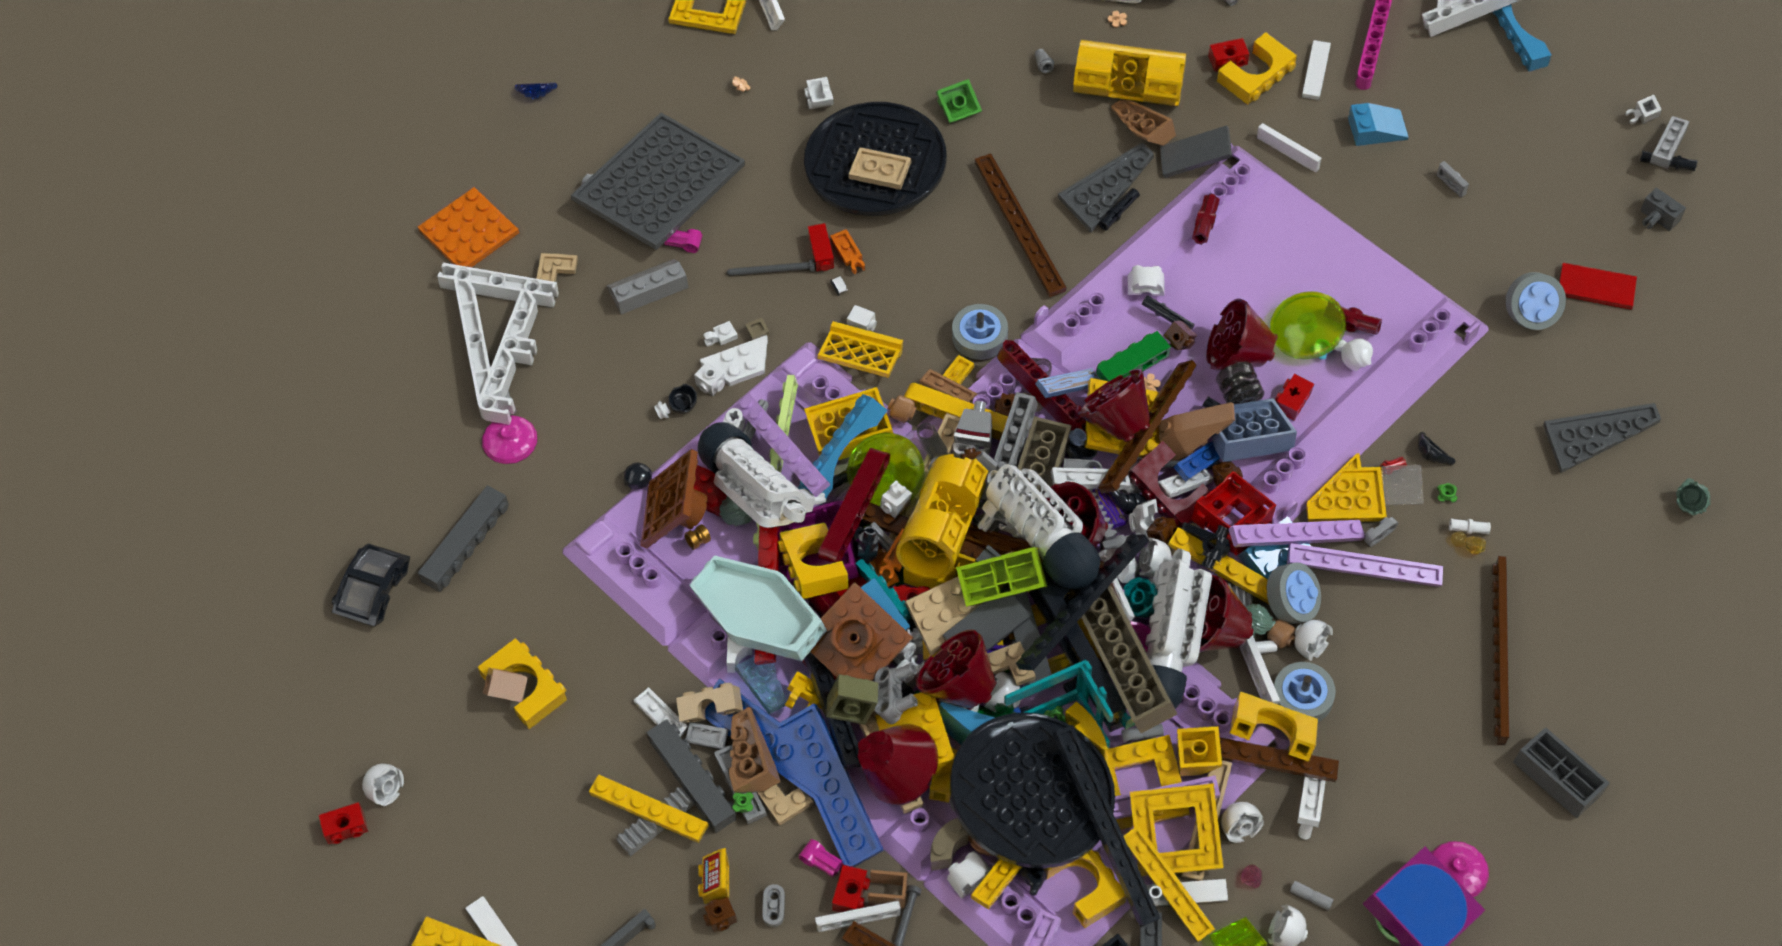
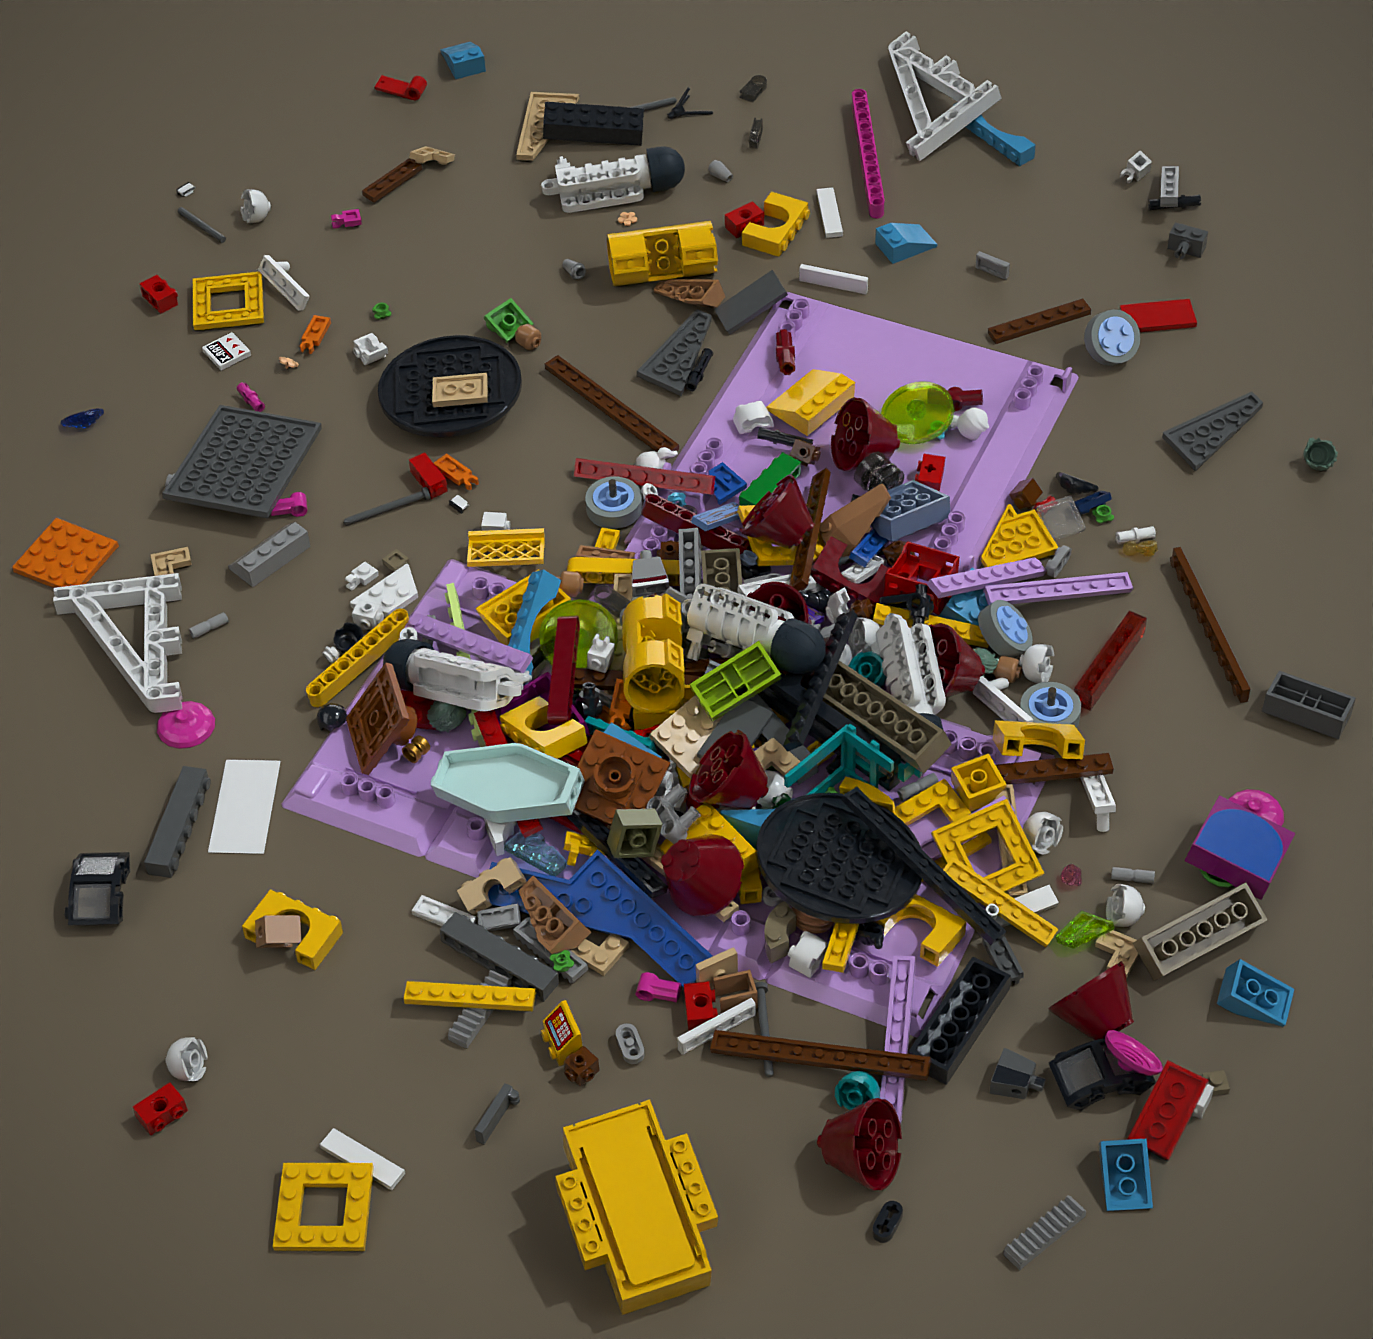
camera: 20 degrees left, 10 degrees down
(529, 541) = (244, 806): none -> white sticker
(569, 342) = (208, 625): none -> light grey piece
(677, 429) = (357, 659): none -> yellow beam
(689, 55) = (226, 351): none -> white tile
(692, 112) = (250, 397): none -> dark pink pin
(776, 60) = (314, 333): none -> orange plate
(846, 53) = (381, 310): none -> bright green plate
(879, 860) = (716, 966): none -> tan plate
(971, 124) = (528, 336): none -> medium nougat head
(1015, 332) = (648, 489): none -> white plate
(1019, 314) = (641, 475): none -> red plate
(1032, 299) = (655, 459): none -> white hair
(1037, 350) = (677, 497): none -> medium azure plate
(1091, 345) = (726, 483): none -> blue wing
(1212, 279) = (813, 400): none -> yellow slope
(1378, 447) = (1026, 493): none -> reddish brown brick
(1384, 658) = (1110, 659): none -> clear red brick
(1441, 475) = (1093, 500): none -> dark blue plate
(1474, 255) = (1039, 321): none -> reddish brown plate

